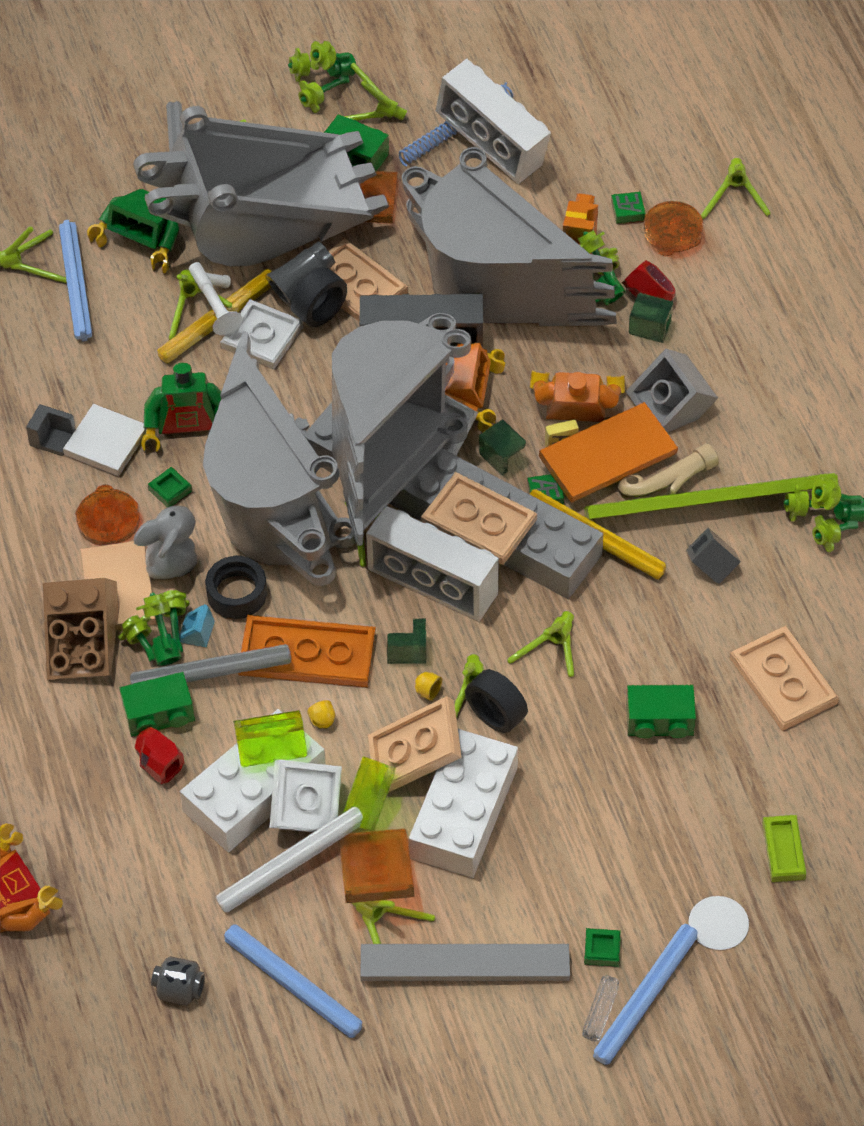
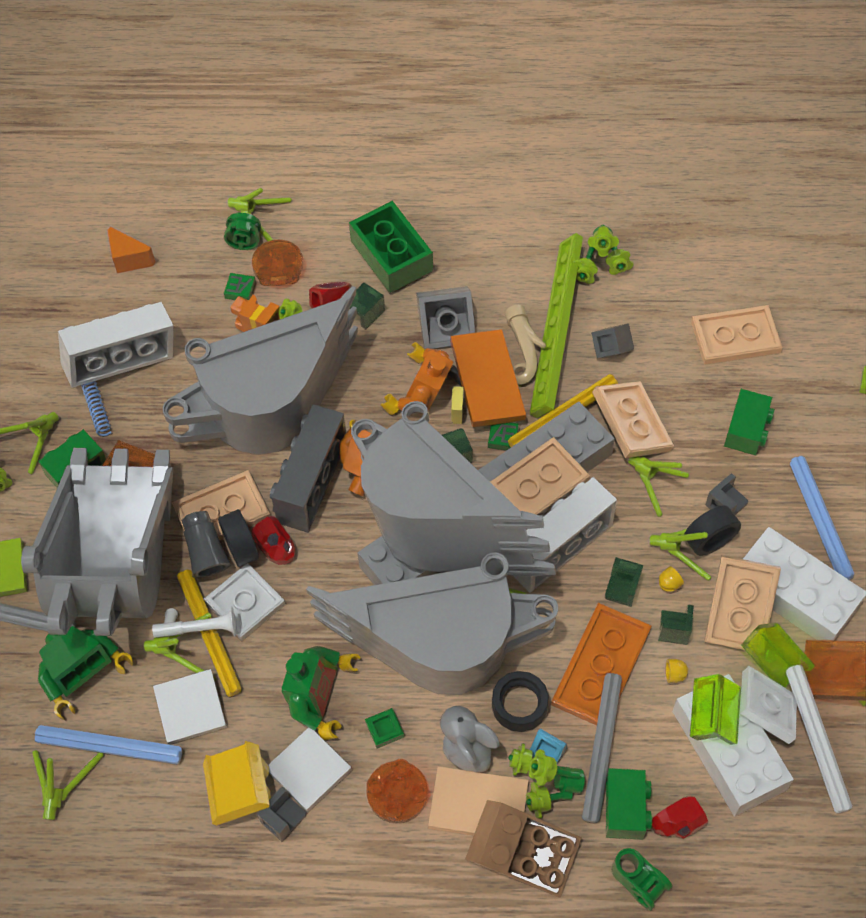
camera: 70 degrees left, 5 degrees up
(67, 381) = (236, 783): none -> yellow slope
(82, 739) = (641, 879): none -> green piece
(134, 326) = (189, 706): none -> white tile
(334, 326) = (273, 540): none -> red rock
(374, 703) = (676, 626): none -> clear green panel
(551, 714) = (726, 495): none -> dark grey panel
(567, 813) = (821, 517): none -> light blue axle
(614, 599) = (632, 419): none -> light nougat tile
(620, 96) = (128, 252): none -> orange slope
(694, 181) = (242, 231): none -> green wheel
(736, 313) = (391, 246): none -> green brick

